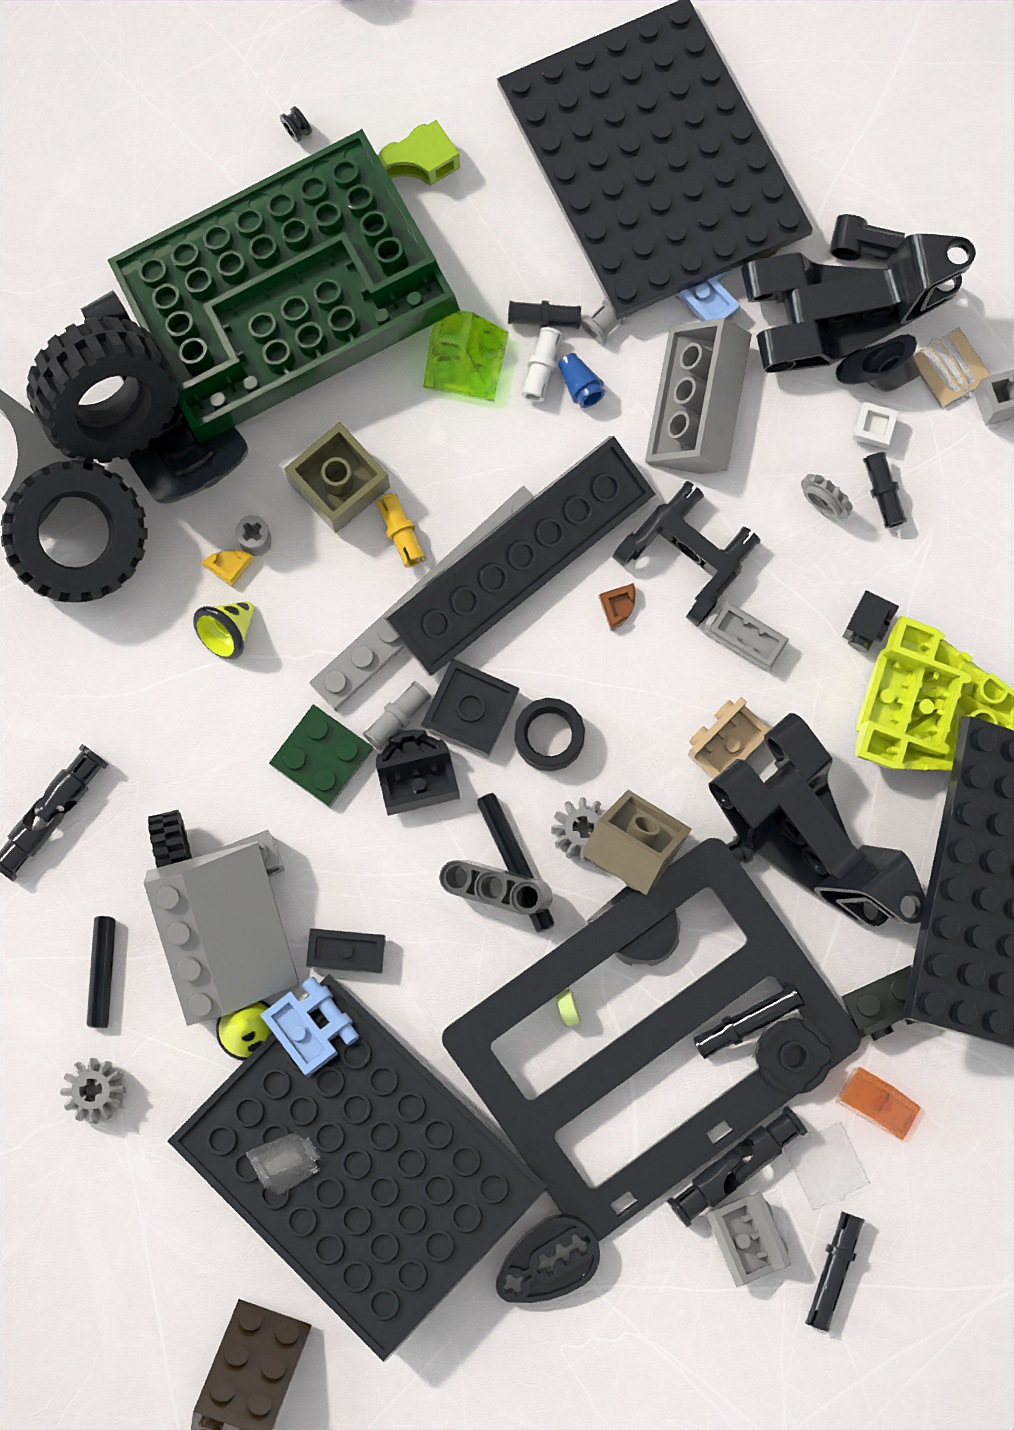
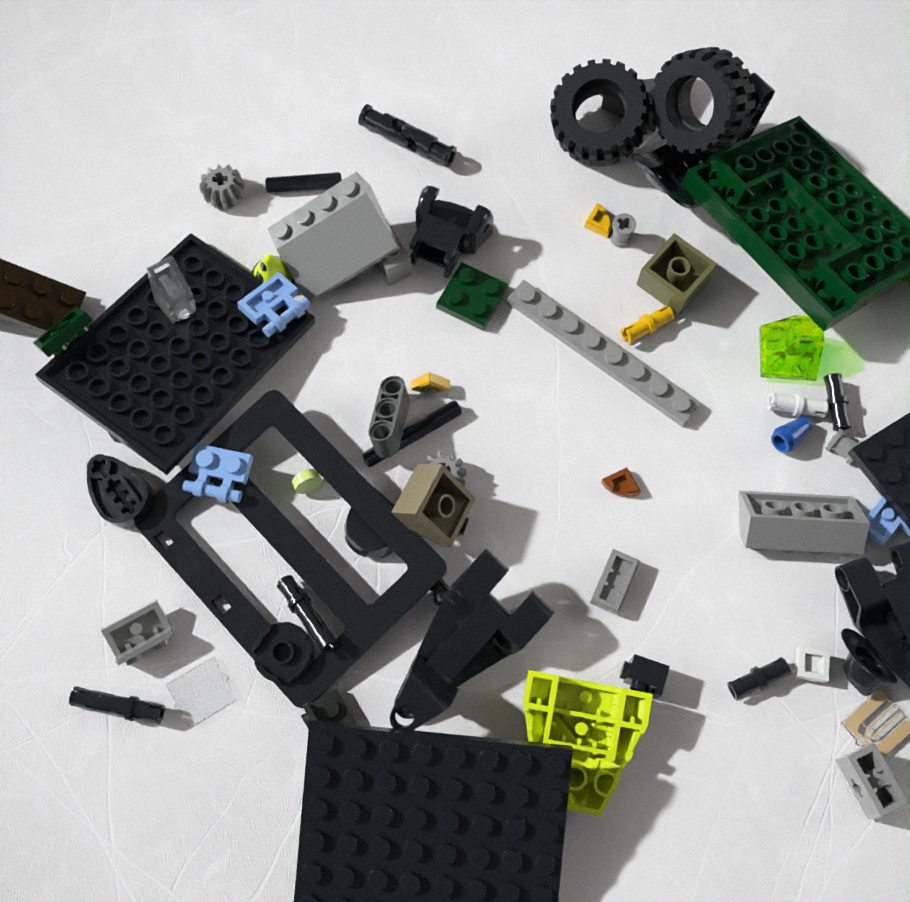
camera: 80 degrees right, 10 degrees down
(168, 838) = (396, 202): black tyre -> none
(218, 772) = (447, 230): none -> black piece
(224, 628) = (554, 221): hat -> none
(319, 1323) = (55, 338): none -> dark green plate
(346, 951) = (333, 327): black plate -> none
(396, 715) = (509, 339): light grey pin -> none
(415, 772) = (468, 356): black slope -> none
(448, 829) = (430, 381): none -> yellow tile
(470, 707) = (523, 387): black plate -> none
(519, 556) = (647, 405): black plate -> none
(538, 1116) = (218, 464): none -> light blue plate
(552, 706) = (511, 423): black tyre -> none
(716, 1184) = (192, 616): black piece -> none
(719, 563) = (669, 555): black connector -> none
(730, 738) = (530, 572): tan bracket -> none
(826, 497) = (741, 627): light grey gear -> none
(878, 1103) = (251, 725): clear orange slope -> none

